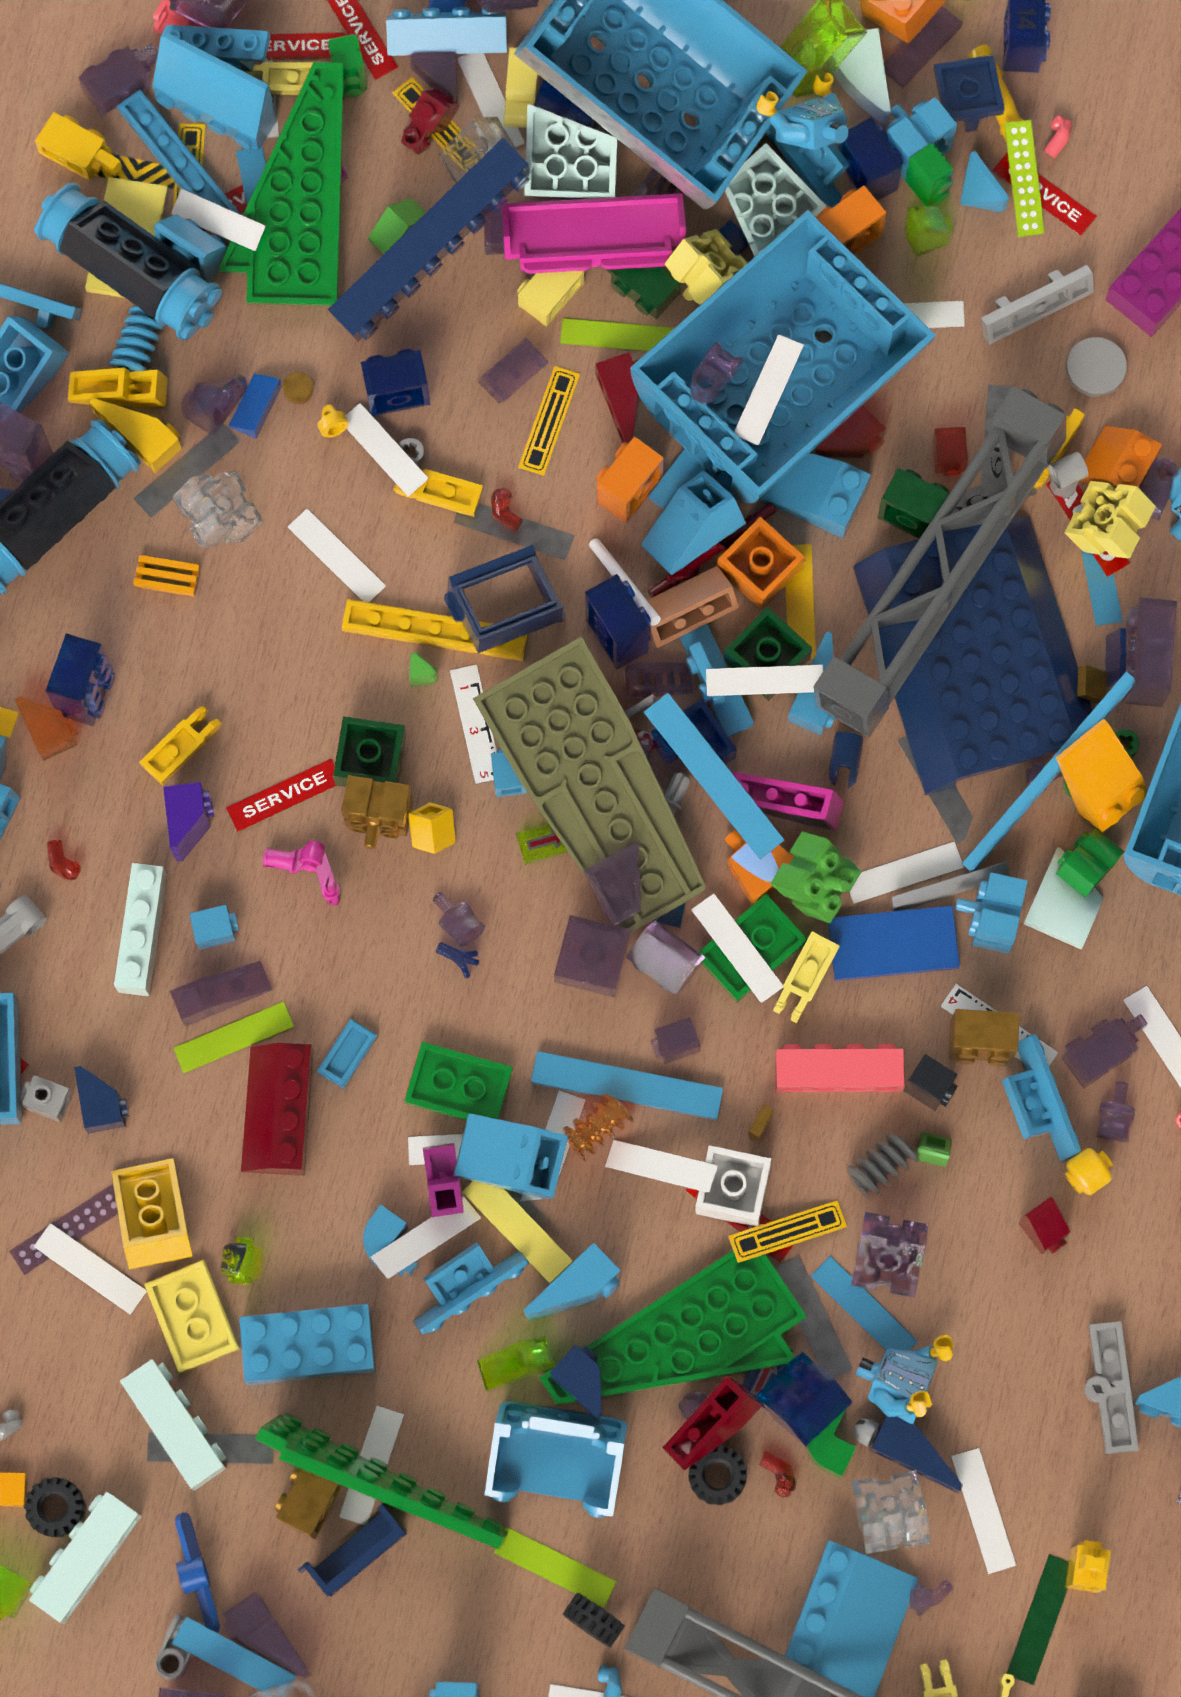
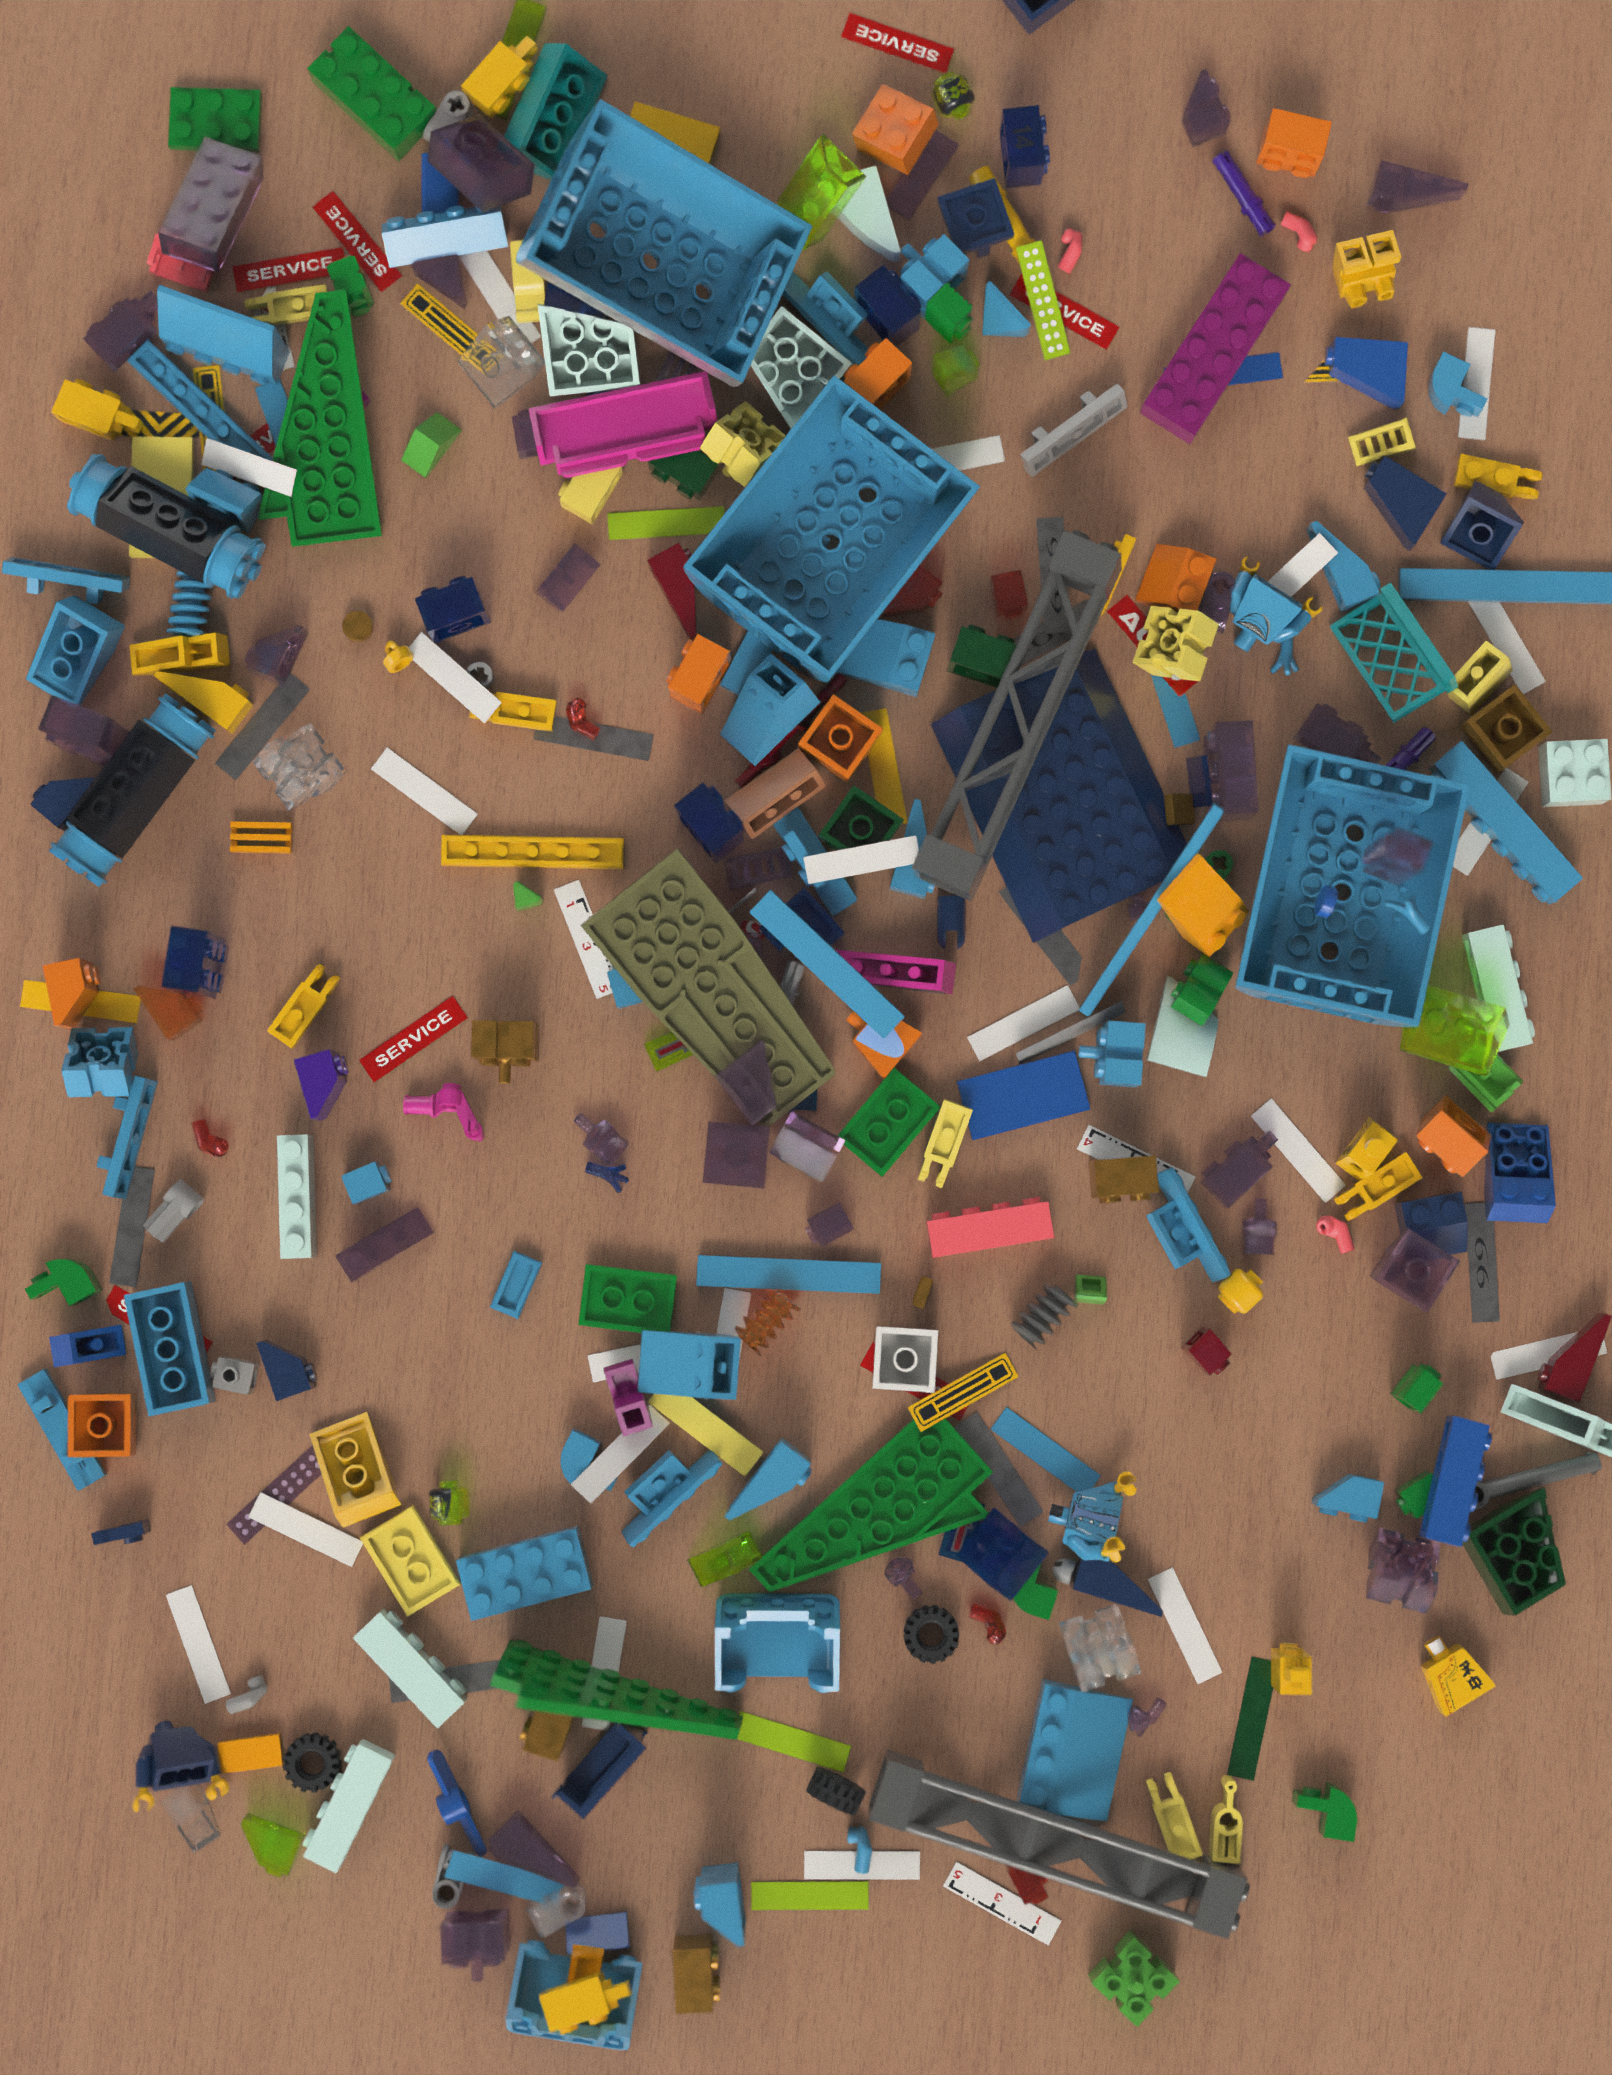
camera: 10 degrees left, 10 degrees up
(232, 46) = (220, 286): dark azure bracket -> none
(233, 1037) = (404, 1284): lime sticker -> none
(255, 405) = (318, 650): blue slope -> none
(277, 1109) = (458, 1350): dark red slope -> none
(369, 751) = (489, 989): dark green brick -> none
(430, 115) = (441, 326): dark red brick -> none
(430, 240) = (462, 461): dark blue brick -> none
(432, 827) = (561, 1051): yellow panel -> none
(515, 626) = (610, 840): dark blue piece -> none
(549, 420) = (610, 621): sticker -> none
(580, 1378) = (789, 1568): dark blue slope -> none
(614, 568) = (709, 777): white bar -> none
(661, 1166) = (834, 1350): white sticker -> none
(712, 1423) = (919, 1589): dark red slope -> none
(716, 369) = (768, 556): clear purple piece -> none
(735, 237) = (764, 405): tile -> none
(737, 948) = (874, 1125): white sticker -> none
(768, 389) = (822, 567): white sticker -> none
(809, 123) = (825, 280): dark azure torso -> none
(816, 877) = (940, 1046): bright green brick -> none
(889, 1254) = (1063, 1403): brick -> none
(931, 1083) = (1080, 1231): black brick -> none
(1066, 474) = (1128, 603): light grey piece -> none
(1096, 367) = (1140, 484): light grey tile -> none
(1112, 1388) = (1290, 1493): light grey hinge -> none

